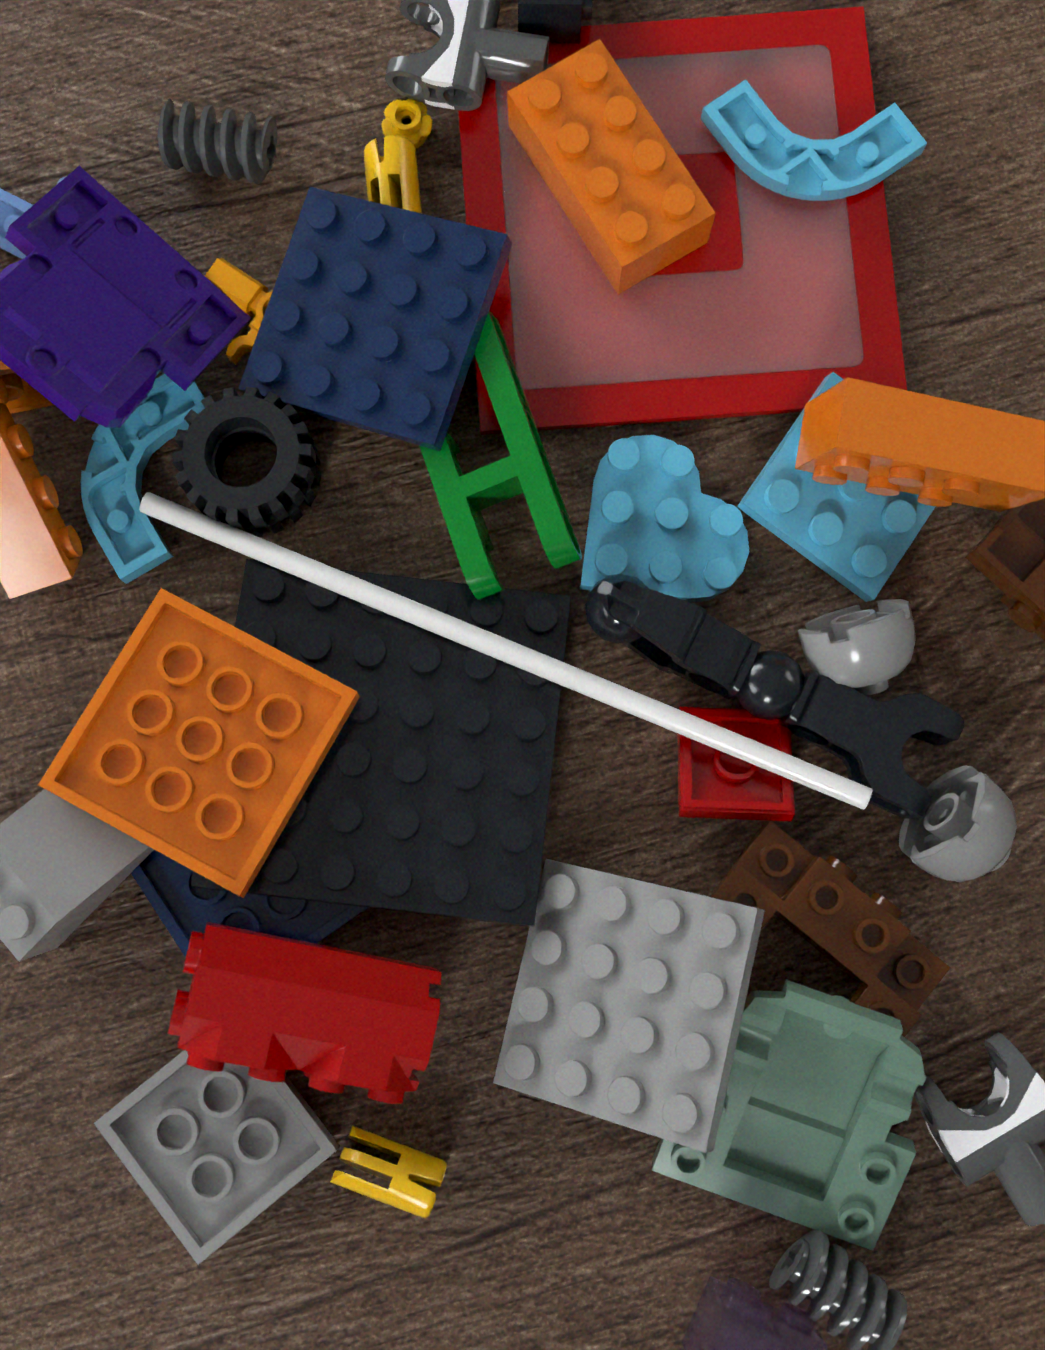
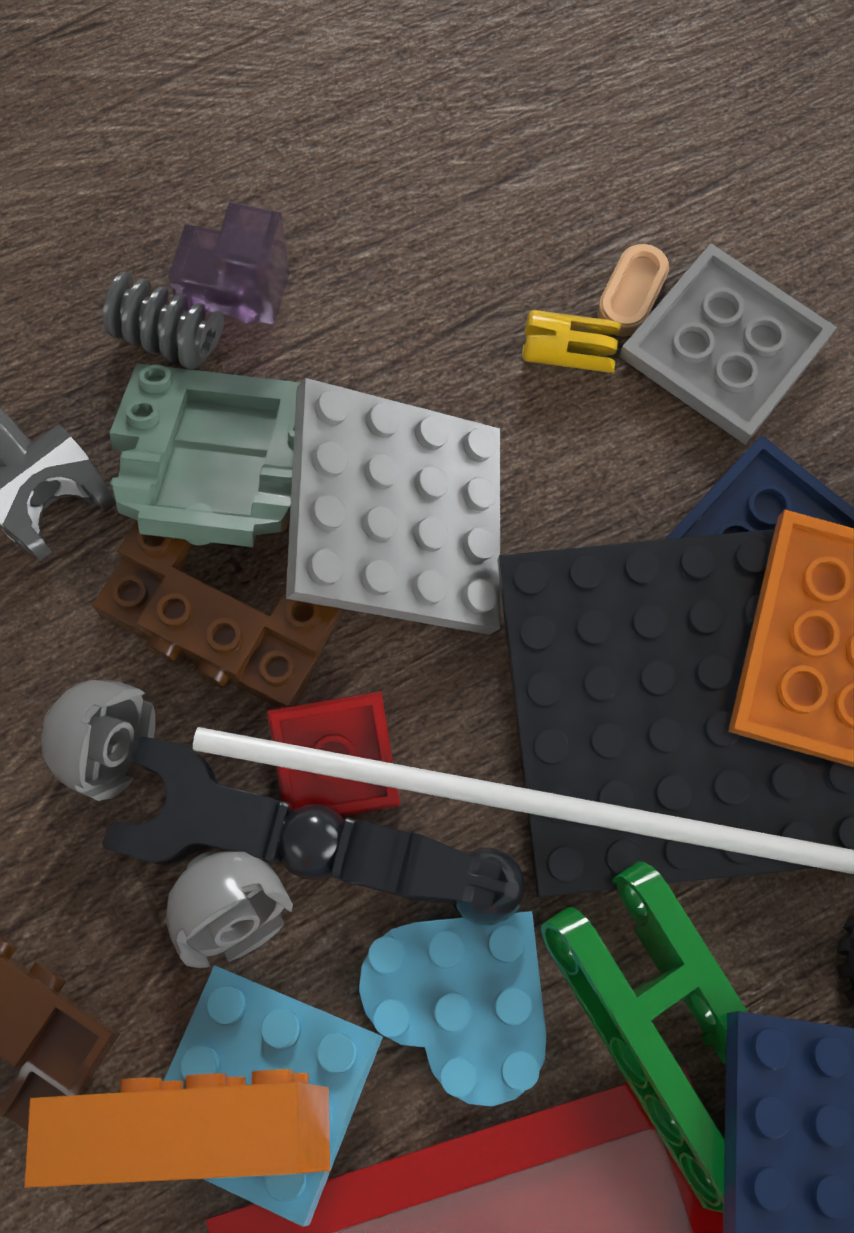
camera: 160 degrees right, 10 degrees down
(299, 1231) = (634, 287): none -> light nougat tile
(307, 1010) = (708, 435): red brick -> none

